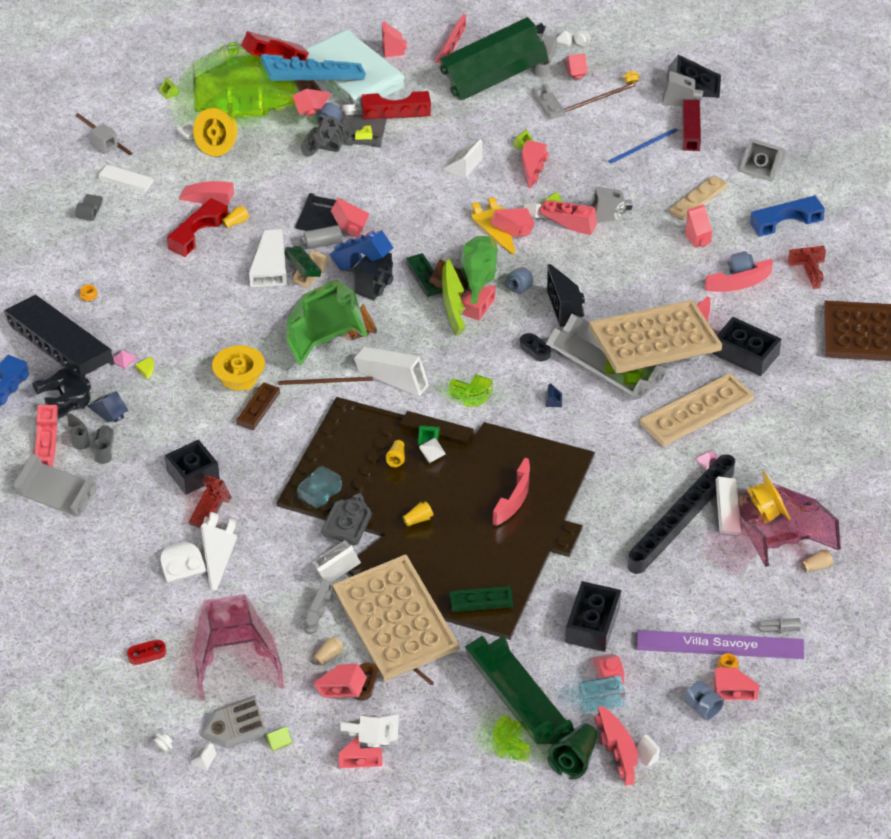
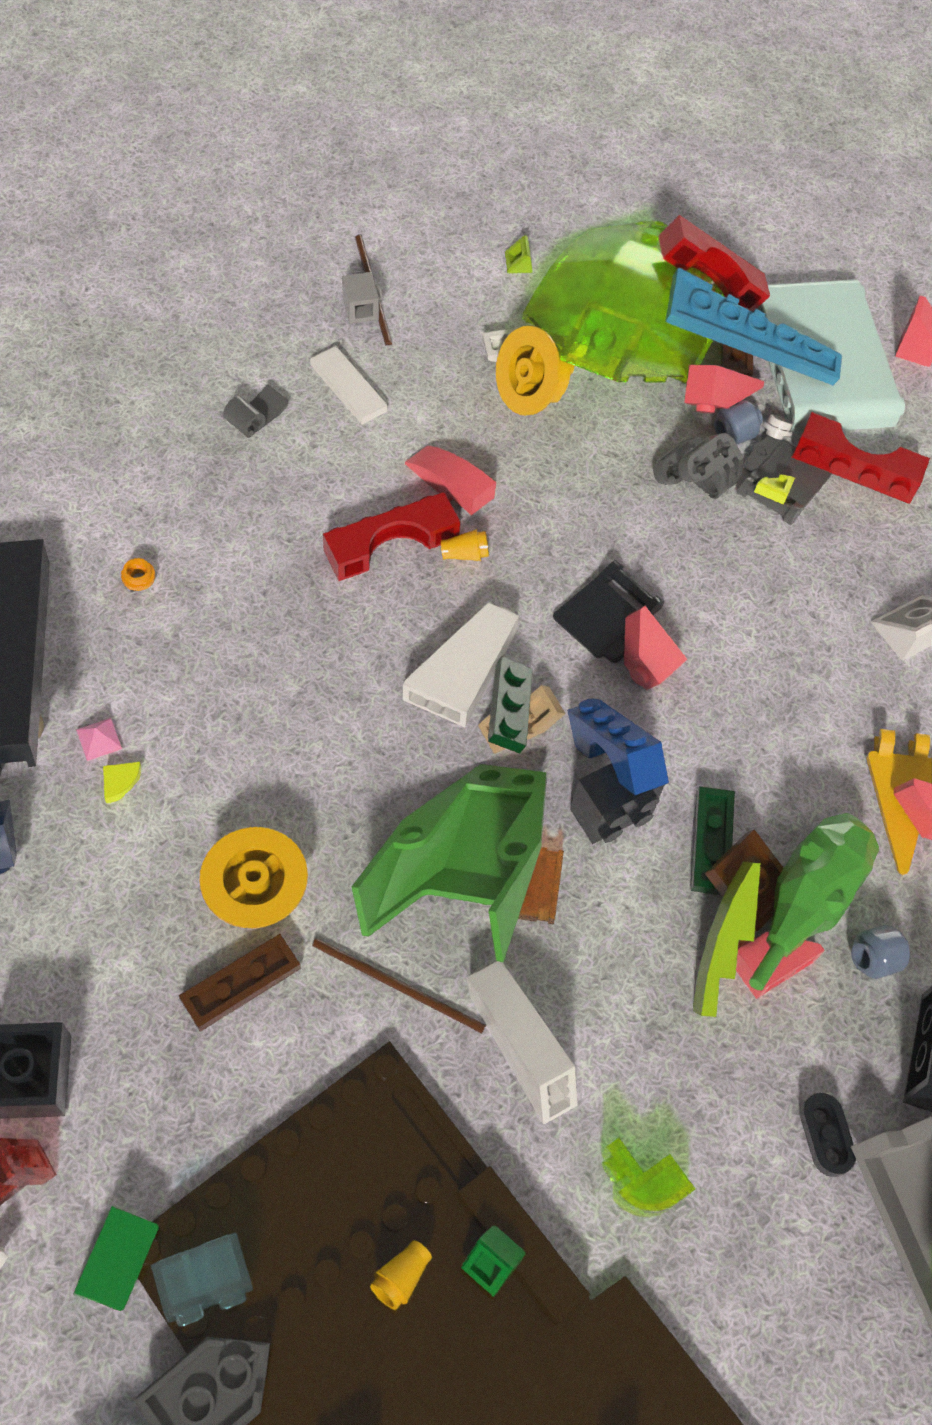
camera: 25 degrees right, 15 degrees up
(278, 502) = (116, 1259): none -> green panel
(321, 237) = (580, 662): light grey brick -> none
(432, 450) = (476, 1307): white slope -> none
(553, 397) = (797, 1290): dark blue slope -> none

